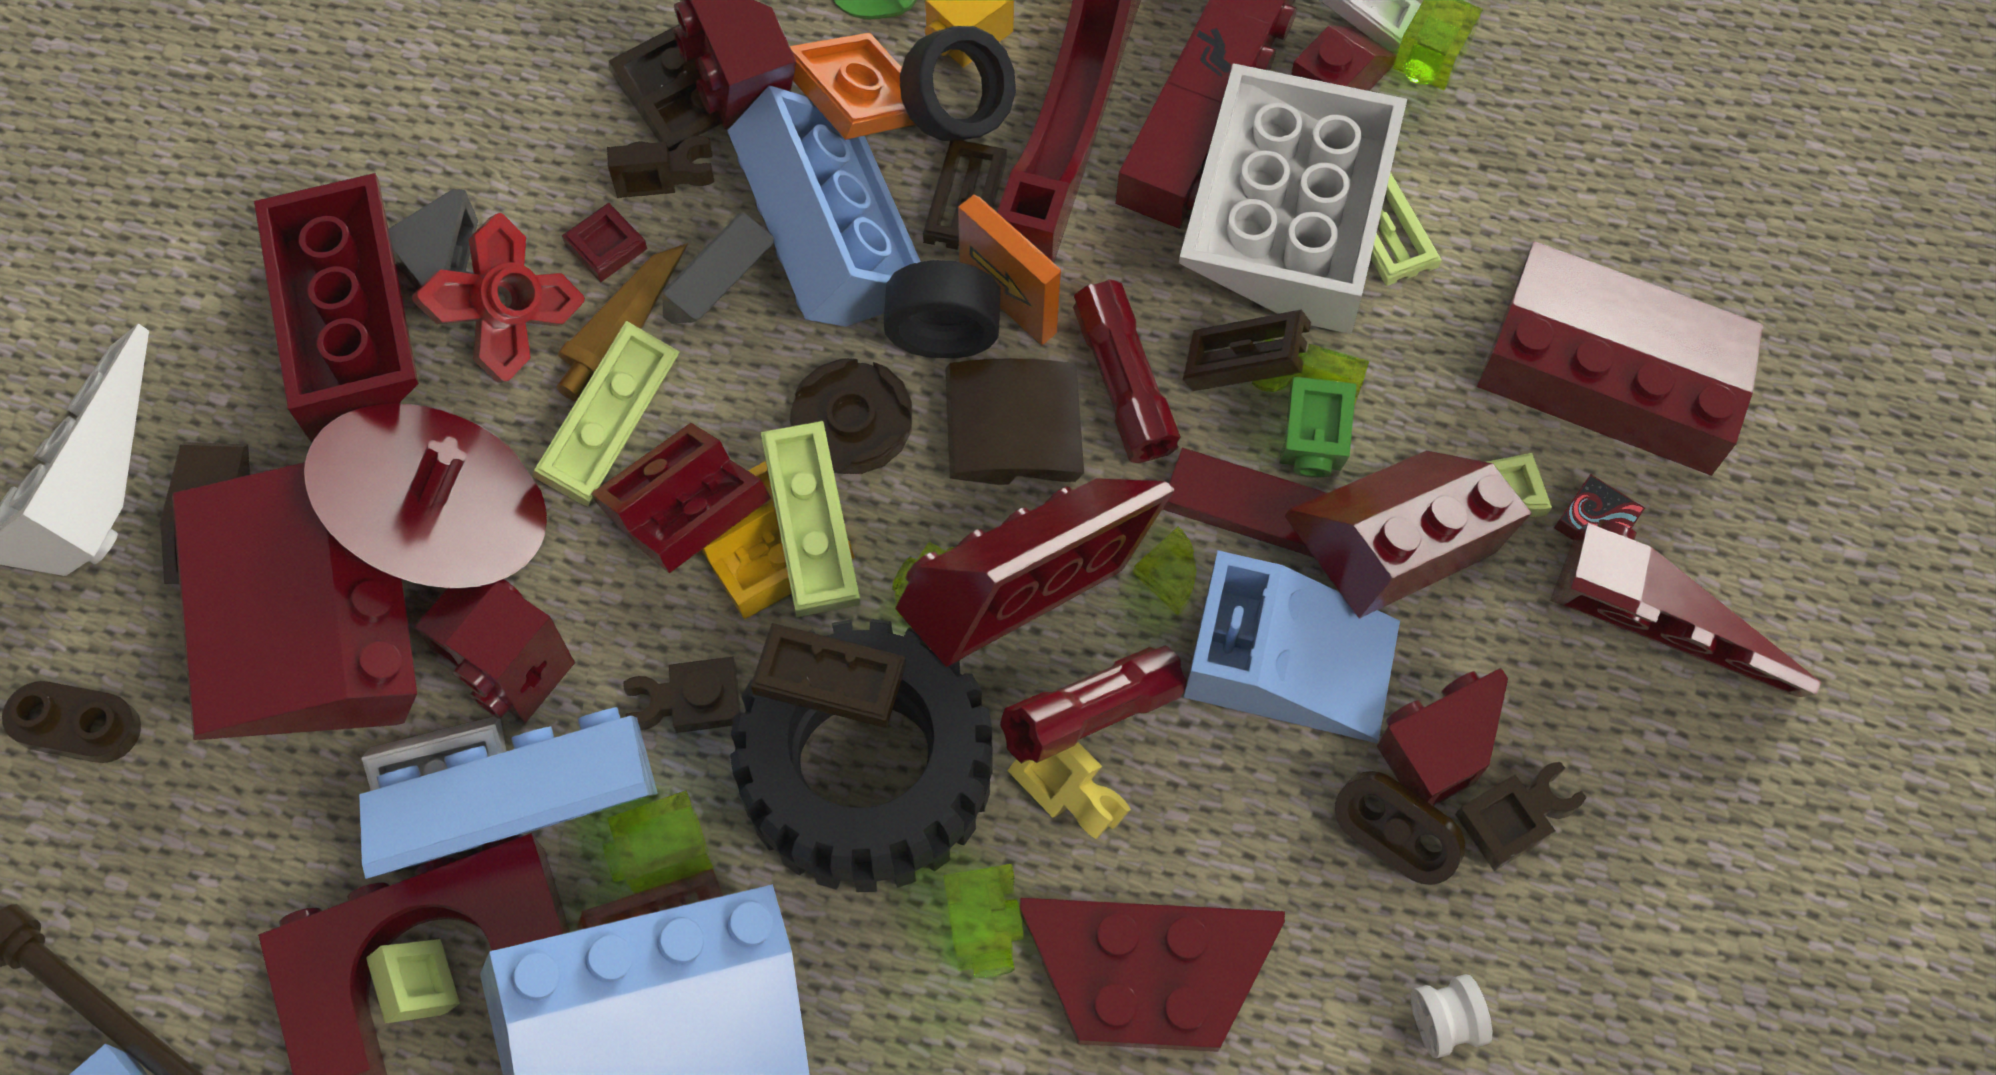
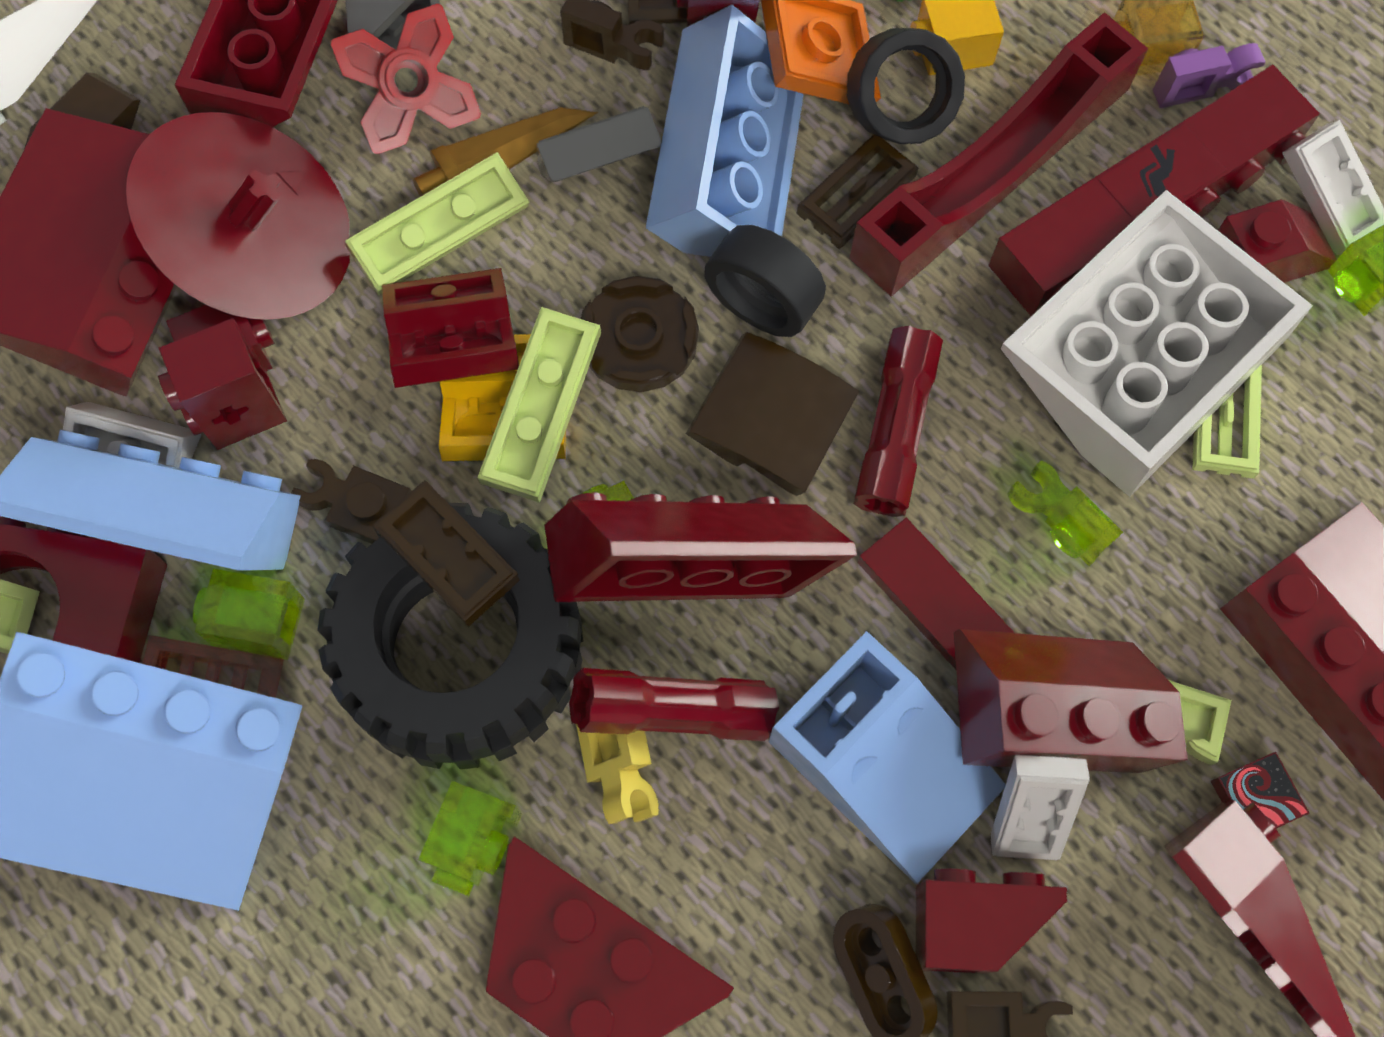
camera: 30 degrees right, 5 degrees up
(604, 242) = (528, 76): dark red tile -> none
(1022, 271) = (847, 274): orange tile -> none
(1170, 570) = (828, 621): clear neon green tile -> none
(1244, 359) = (1009, 468): dark brown tile -> none
(1318, 426) = (1039, 565): bright green bracket -> none
(1439, 617) = (1039, 806): none -> white plate

